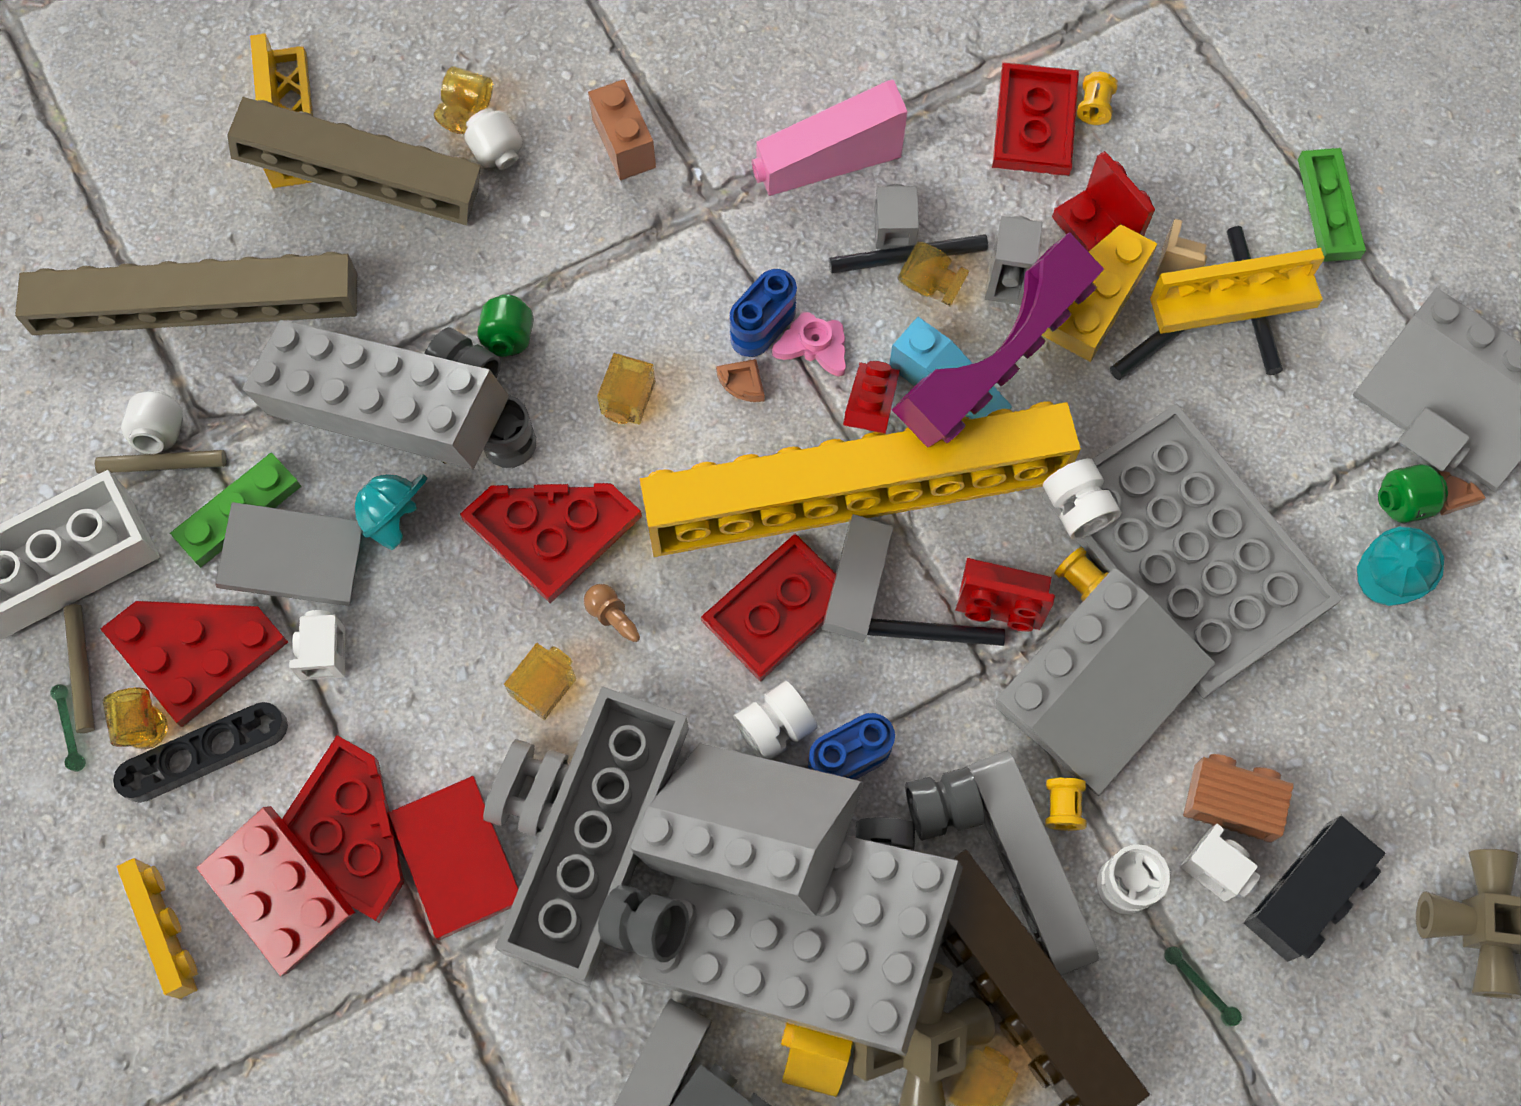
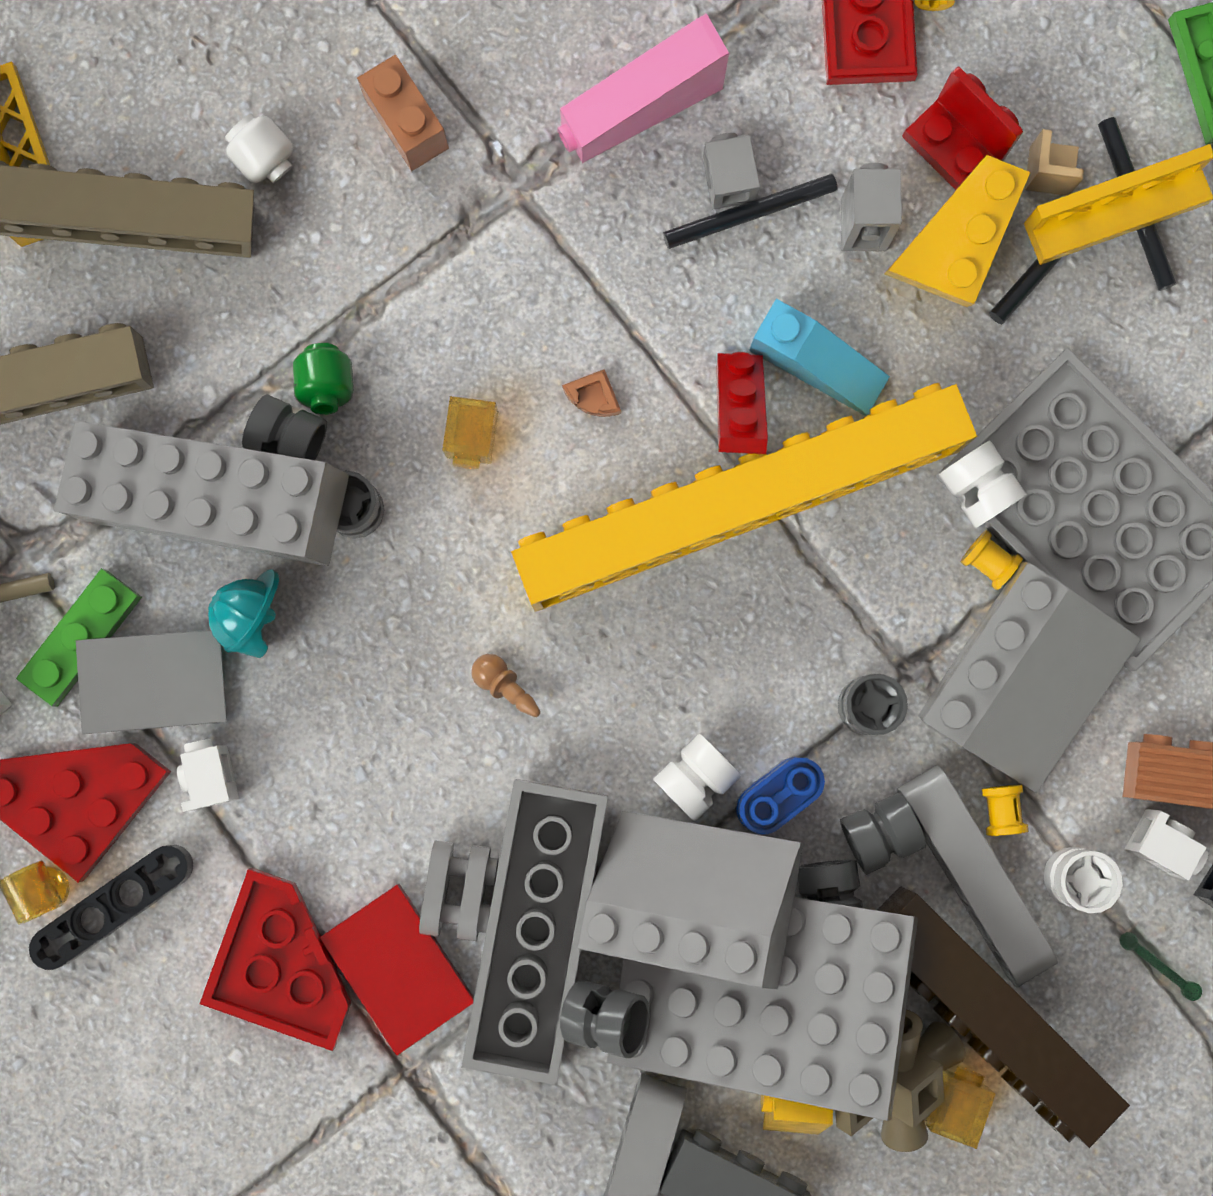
camera: 10 degrees left, 15 degrees up
(159, 928) = (116, 1095): yellow plate -> none
(275, 890) = (225, 1039): plate -> none
(462, 94) = (213, 96): clear yellow piece -> none
(541, 680) = (446, 772): clear yellow brick -> none
(551, 529) = (421, 604): red plate -> none
(763, 312) = (603, 315): blue brick -> none
(773, 607) = (676, 646): red tile -> none
(827, 348) = (646, 337): bright pink animal -> none
(857, 578) = (756, 605): light grey tile -> none
(928, 271) = (779, 234): clear yellow piece -> none
(936, 632) = (825, 648): black bar -> none
(945, 396) = (923, 251): magenta arch -> none
(952, 682) = (872, 705): none -> dark grey wheel
(1004, 595) = (911, 592): red bracket -> none

